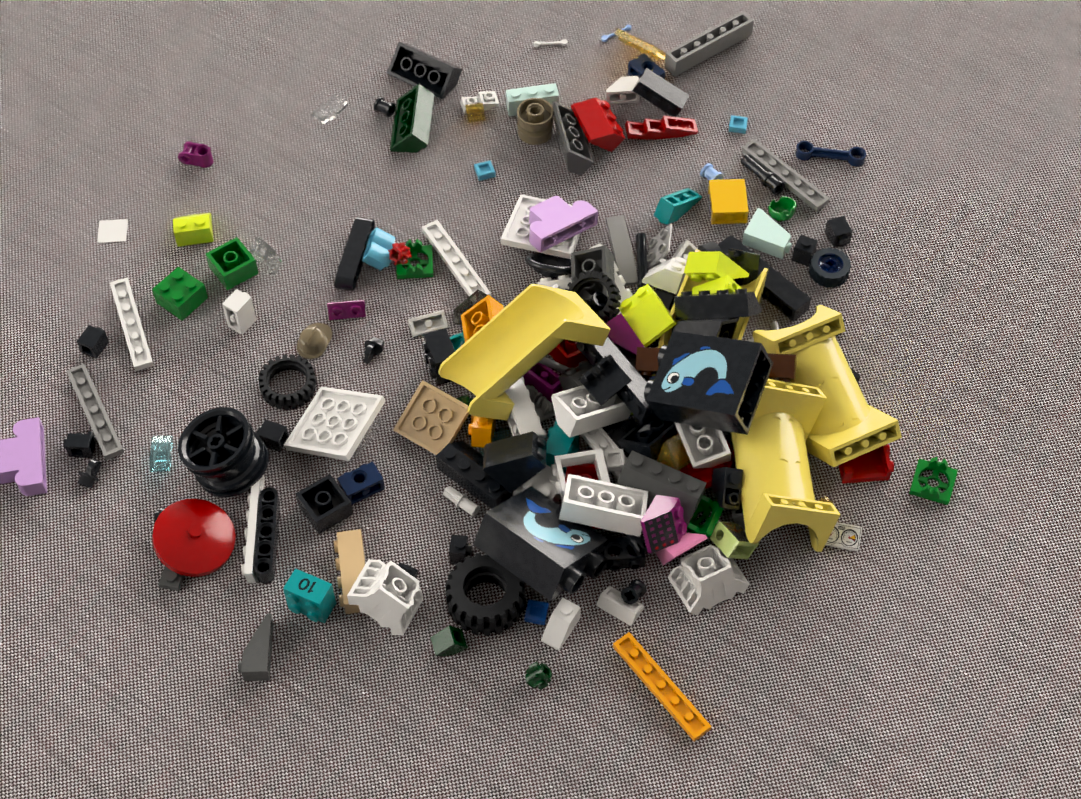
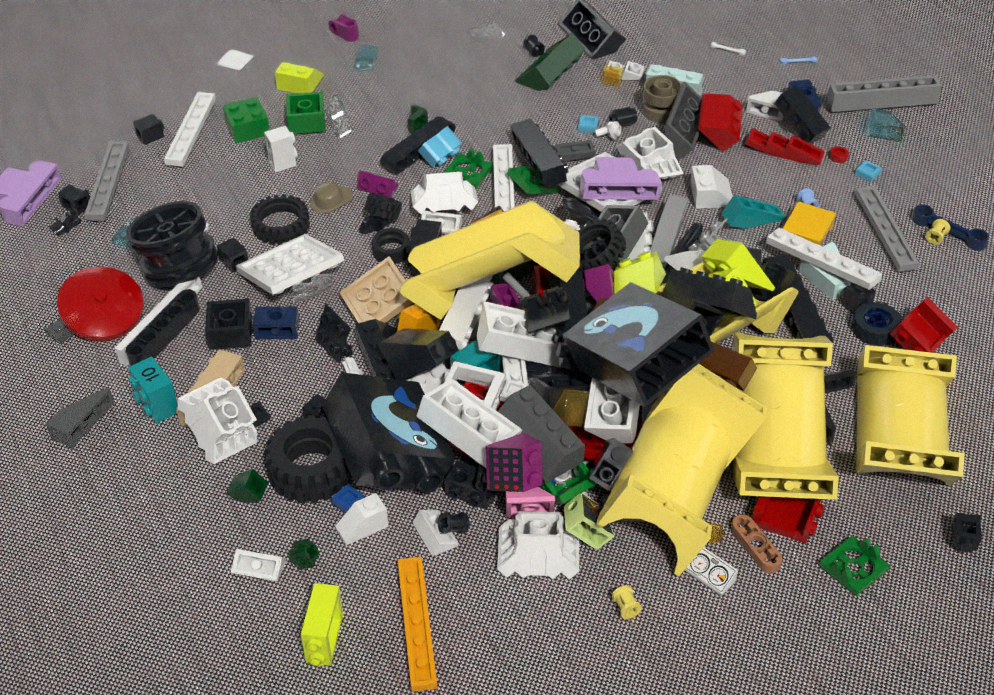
camera: 30 degrees right, 10 degrees down
(239, 180) = (366, 58): none -> clear light blue slope
(336, 227) = (418, 118): none -> dark green bracket
(373, 330) = (383, 206): none -> black tyre
(399, 253) = (454, 155): red gear -> none
(408, 376) = (386, 236): none -> black tyre
(415, 295) = (443, 192): none -> white slope
(421, 472) = (333, 334): none -> black hinge
(472, 221) = (539, 153): none -> black brick
(484, 241) = (522, 177): none -> green piece
(488, 206) = (575, 150): none -> dark grey hinge
(505, 702) = (257, 565): none -> white slope
(511, 169) = (612, 128): none -> white plate
(512, 152) = (624, 116): none -> black brick
(565, 181) = (653, 152): none -> white slope
(599, 725) = (322, 624): none -> neon yellow window
(627, 195) = (709, 187): none -> white slope
(640, 45) = (808, 69): clear yellow plate -> none
(706, 117) = (839, 154): none -> red tile
(727, 74) = (885, 125): none -> clear light blue slope
(763, 227) = (824, 258): none -> white plate
(767, 178) = (864, 224): black pin -> none
(782, 209) = (864, 255): green hair -> none
(799, 591) = (626, 602): none -> light yellow bush
(825, 165) = (937, 231): none -> light yellow bush
(838, 231) = (908, 294): black brick -> none
(847, 486) = (756, 553): none -> nougat beam
(868, 259) = (923, 328): none -> red panel
(899, 344) = (905, 413): none -> light yellow piece
(993, 418) = (966, 537): none -> black brick

